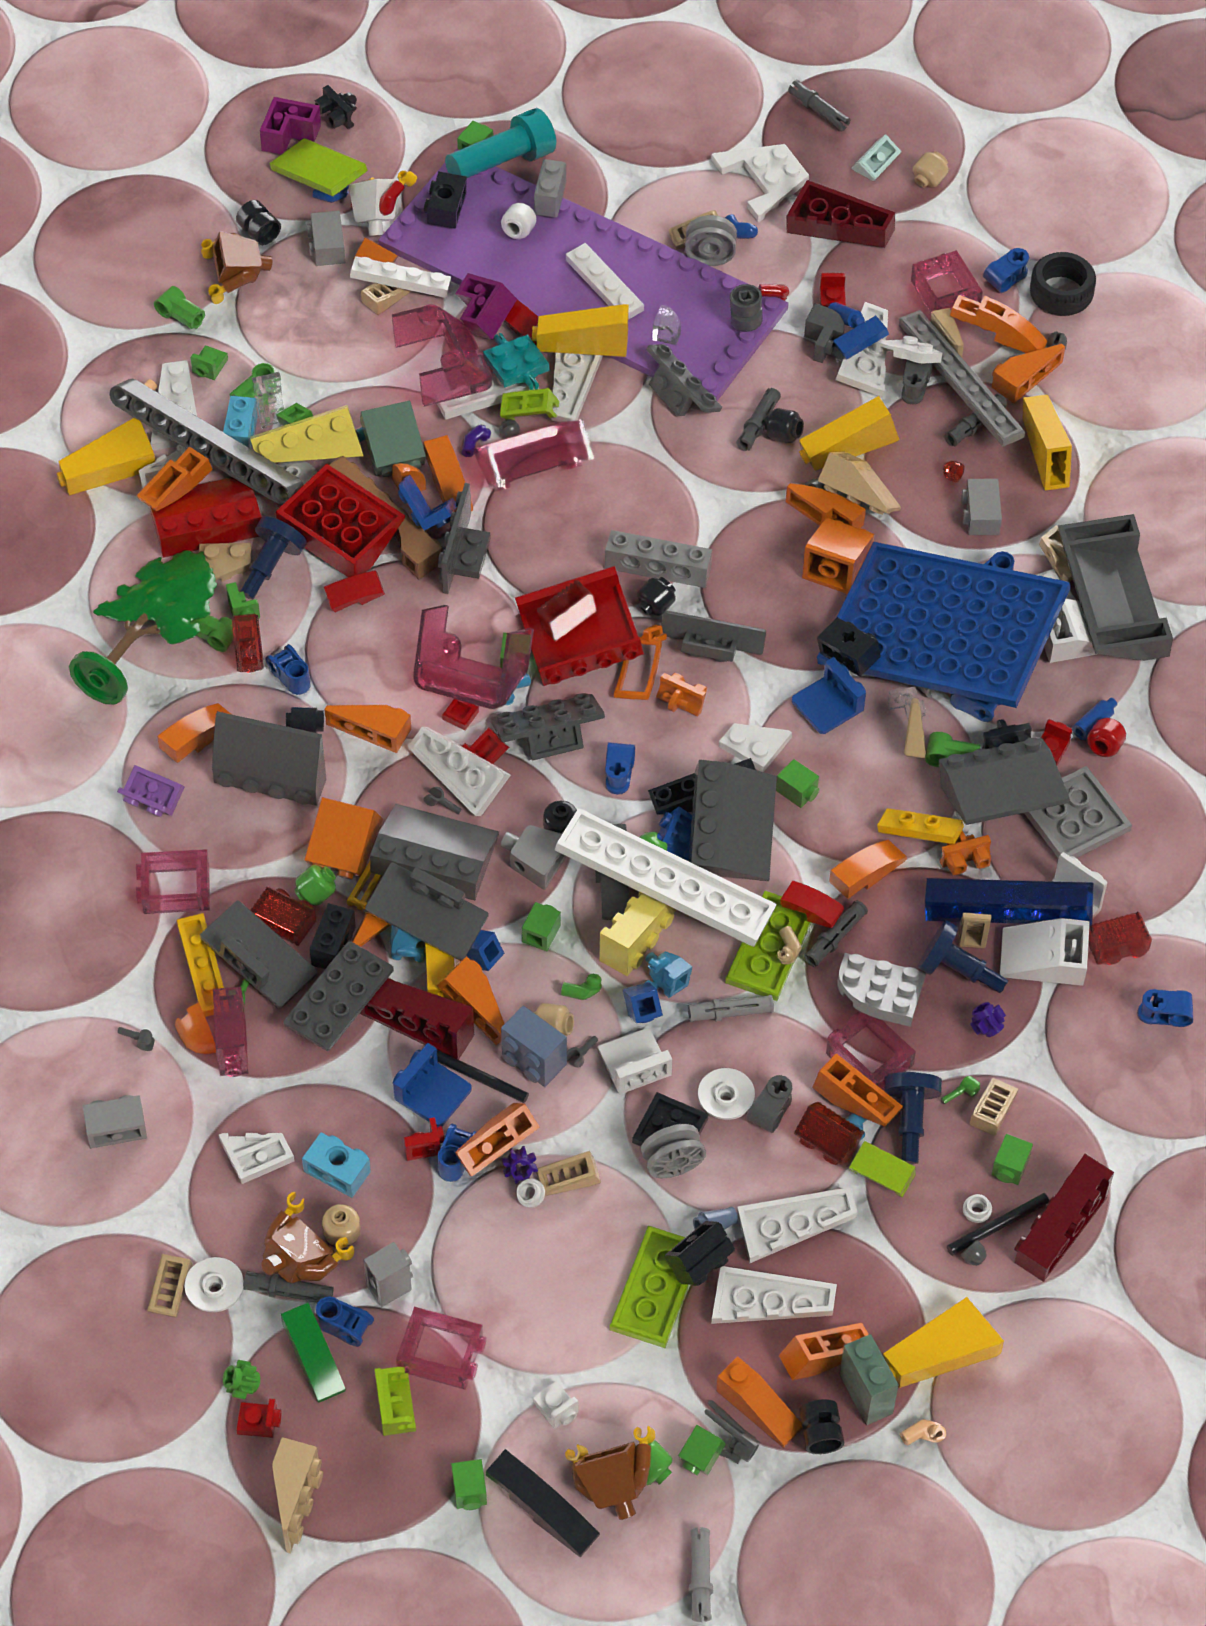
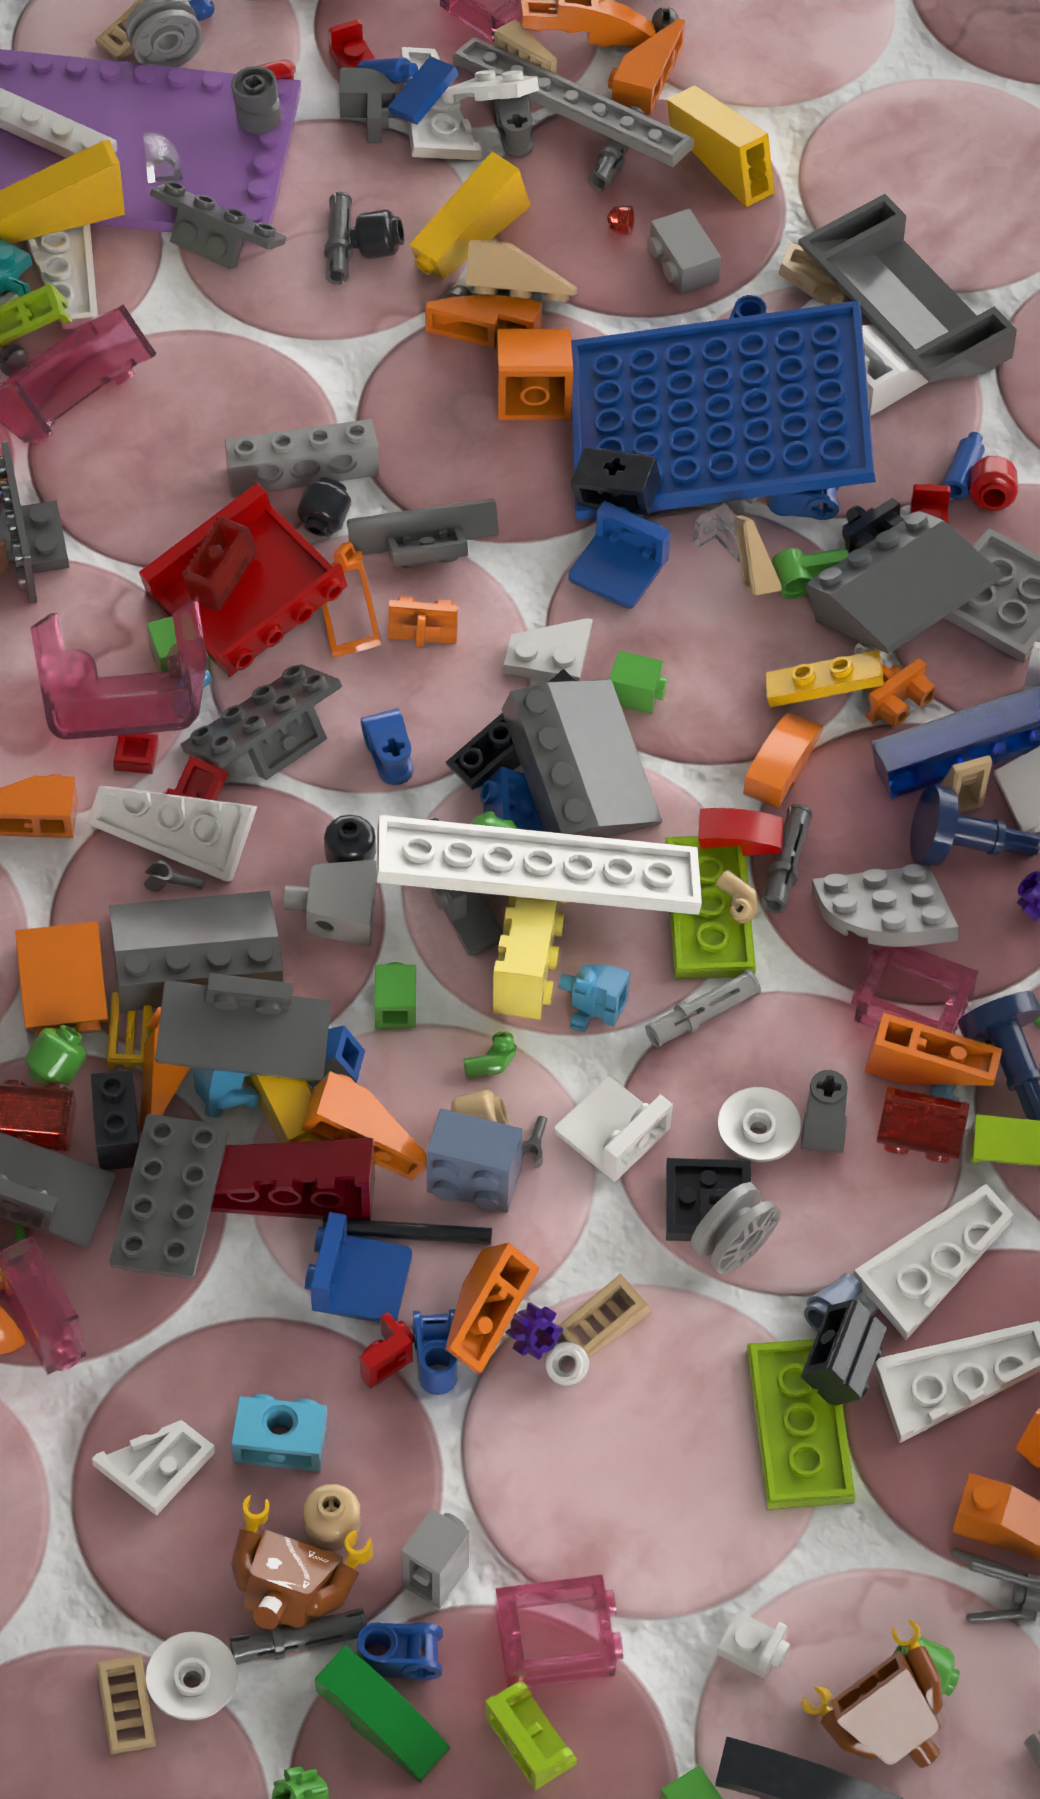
camera: 25 degrees left, 0 degrees up
(642, 1002) = (587, 1045): blue brick -> none
(701, 1451) = (984, 1624): bright green brick -> none

